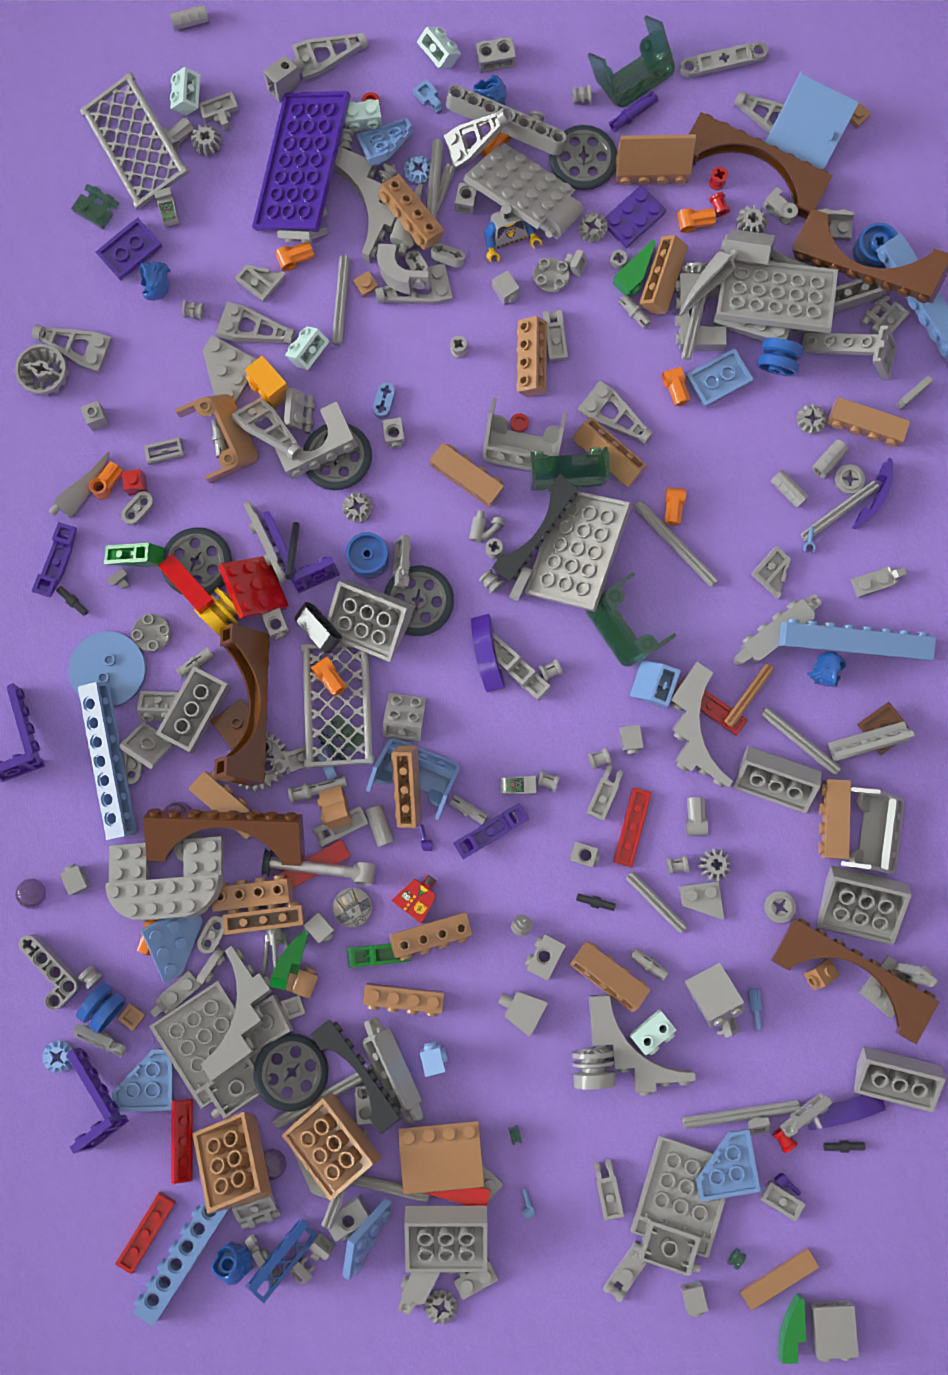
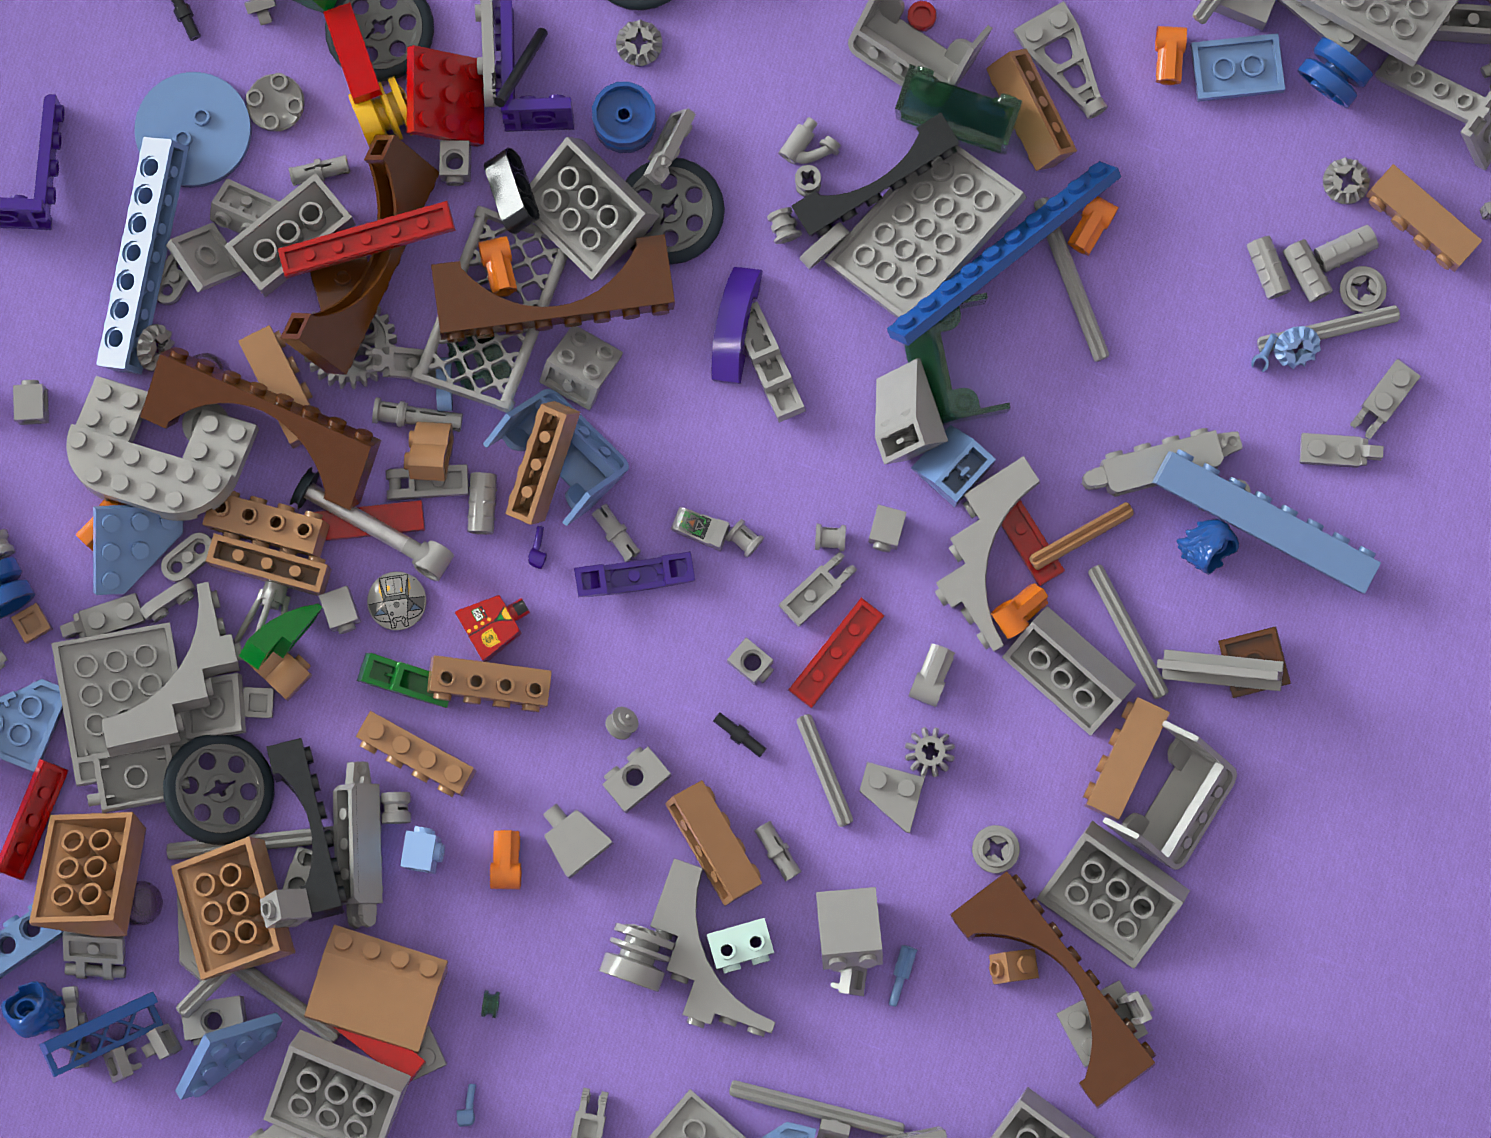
camera: 25 degrees right, 0 degrees up
(132, 814) = (147, 345): none -> light grey gear
(242, 694) = (366, 239): none -> red tile
(325, 710) = (472, 310): none -> reddish brown arch
(365, 1135) = (285, 908): none -> light grey brick
(405, 1037) = (395, 807): none -> light grey wheel
(467, 475) = (812, 59): medium nougat brick -> none
(488, 1044) = (505, 868): none -> orange piece
(551, 670) = (815, 385): light grey bush -> none
(614, 664) = (906, 414): none -> light grey slope
(631, 545) = (1003, 253): none -> blue plate
(677, 865) = (876, 730): light grey bush -> none
(731, 758) = (1015, 613): none -> orange piece
(772, 571) = (1192, 375): light grey wing -> none
(813, 481) = (1307, 271): none -> light grey axle
(823, 526) = (1290, 340): none -> light blue gear
(885, 476) = (1363, 350): dark purple slope -> none
(891, 537) = (1387, 396): none -> light grey hinge

